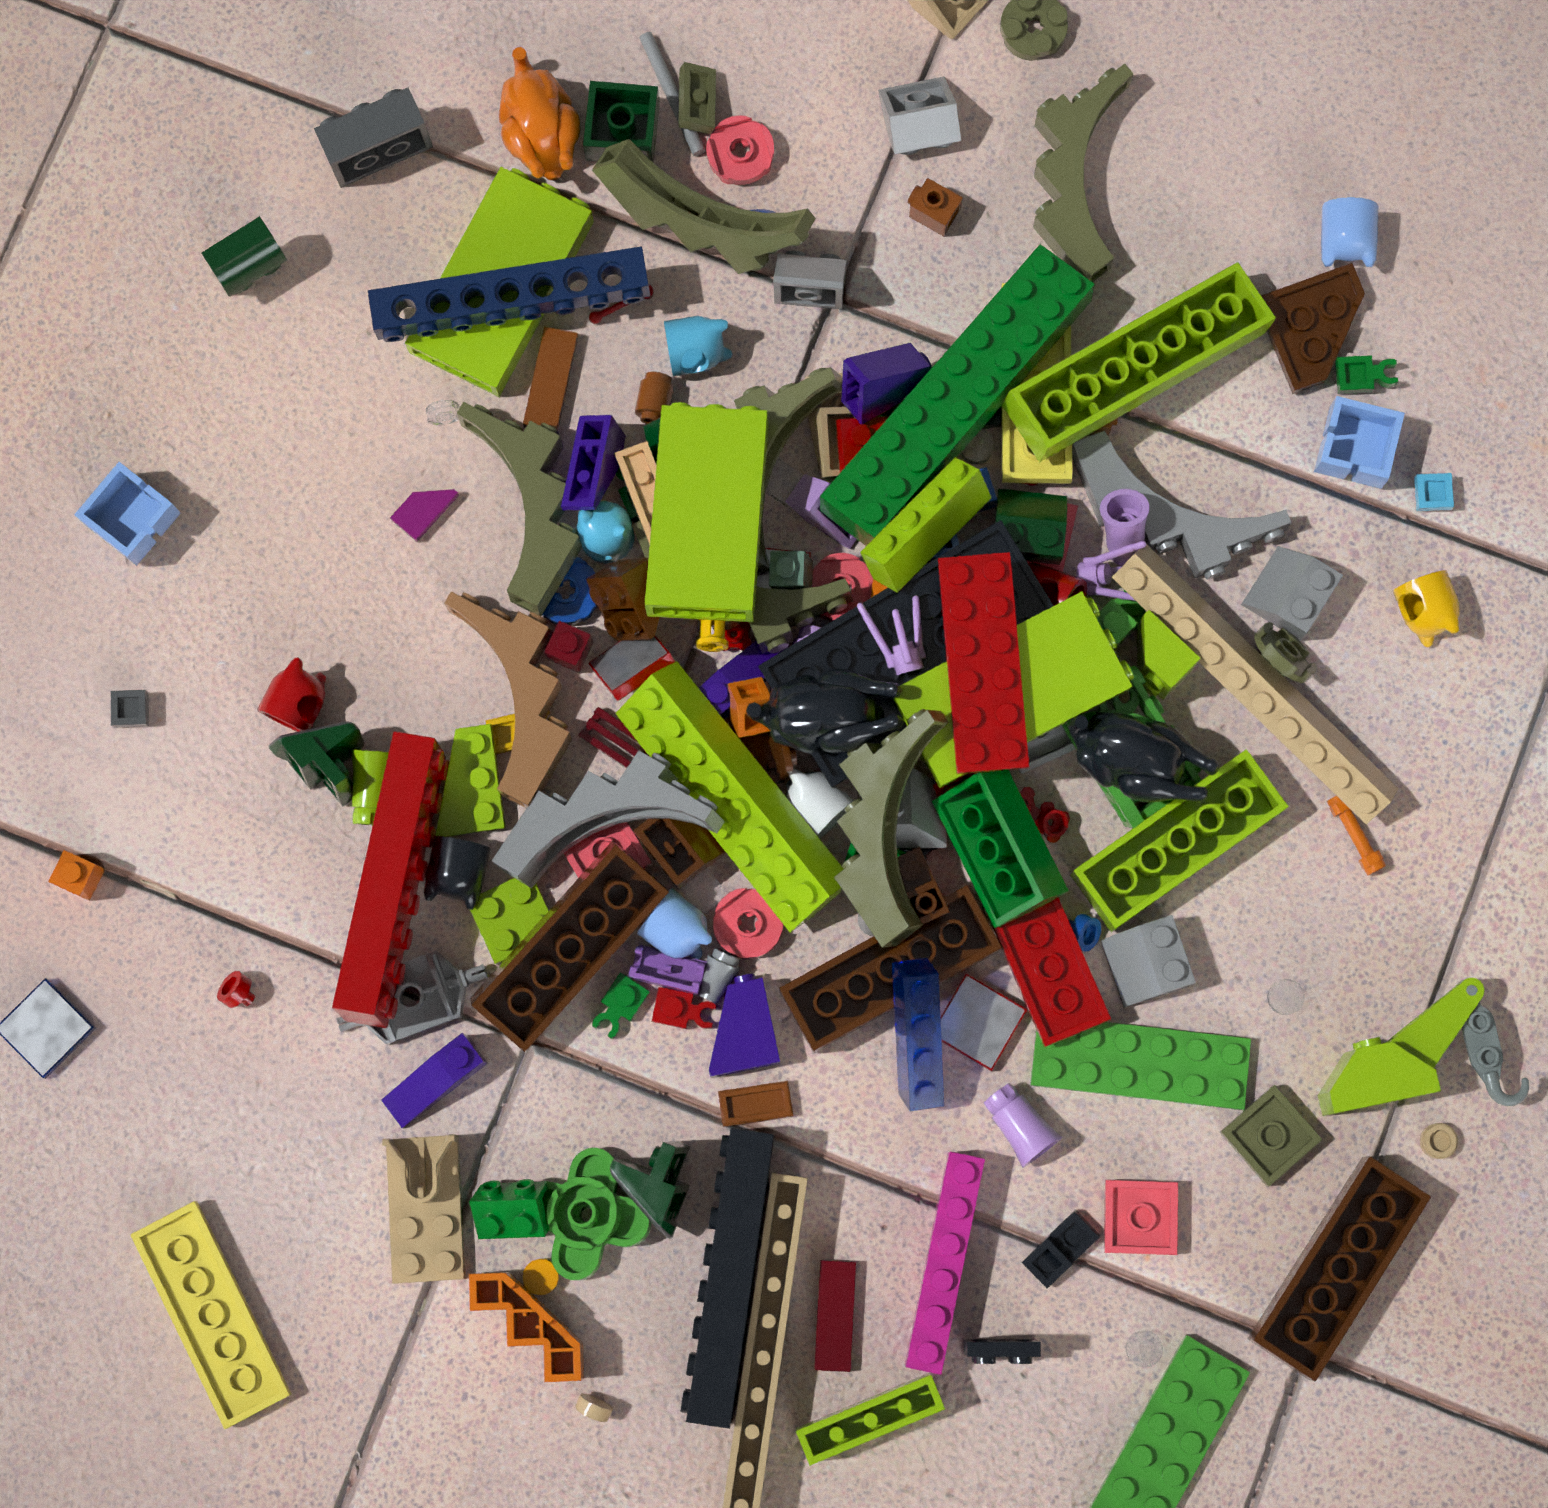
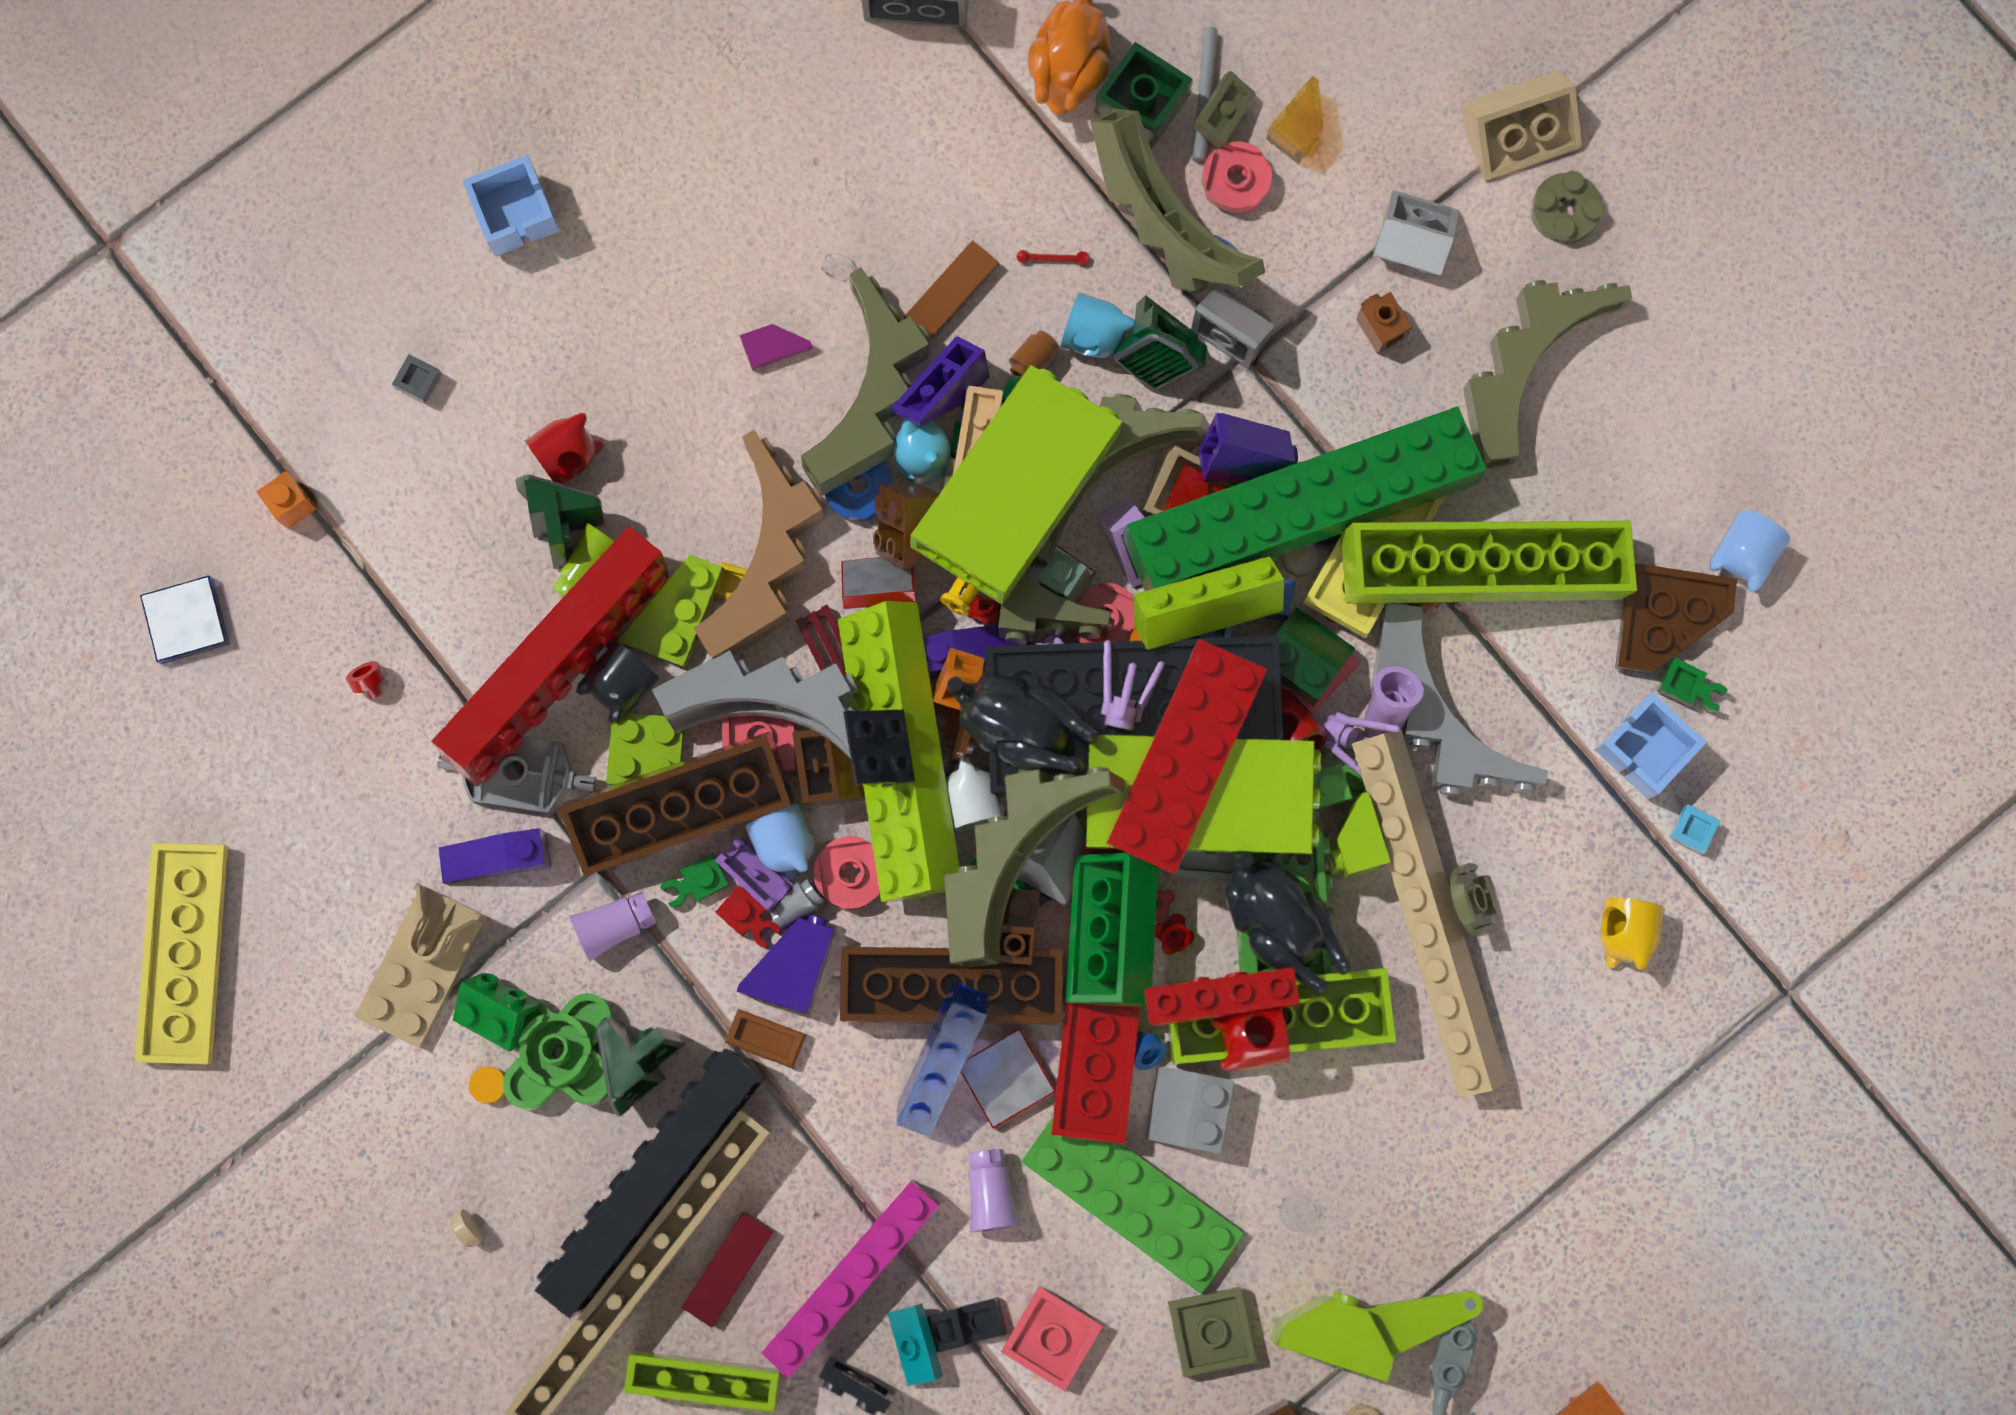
camera: 25 degrees right, 0 degrees up
(244, 257) = (740, 34): dark green brick -> none
(491, 285) = (844, 142): dark blue brick -> none
(511, 228) = (956, 177): lime brick -> none
(529, 1323) = (452, 1122): orange brick -> none
(569, 647) = (831, 537): dark red brick -> none
(569, 1080) = (611, 924): none -> lavender plant
(719, 799) = (879, 747): none -> black hinge
(759, 331) = (1159, 347): none -> dark green piece
(769, 76) = (1300, 124): none -> clear yellow slope
(1029, 1288) = (915, 1344): none -> teal plate
(1125, 848) = (1222, 996): none -> red bracket
(1170, 867) = (1254, 1039): none -> red piece
(1292, 590) = (1512, 847): light grey slope -> none
(1371, 860) = (1446, 1132): orange bar -> none

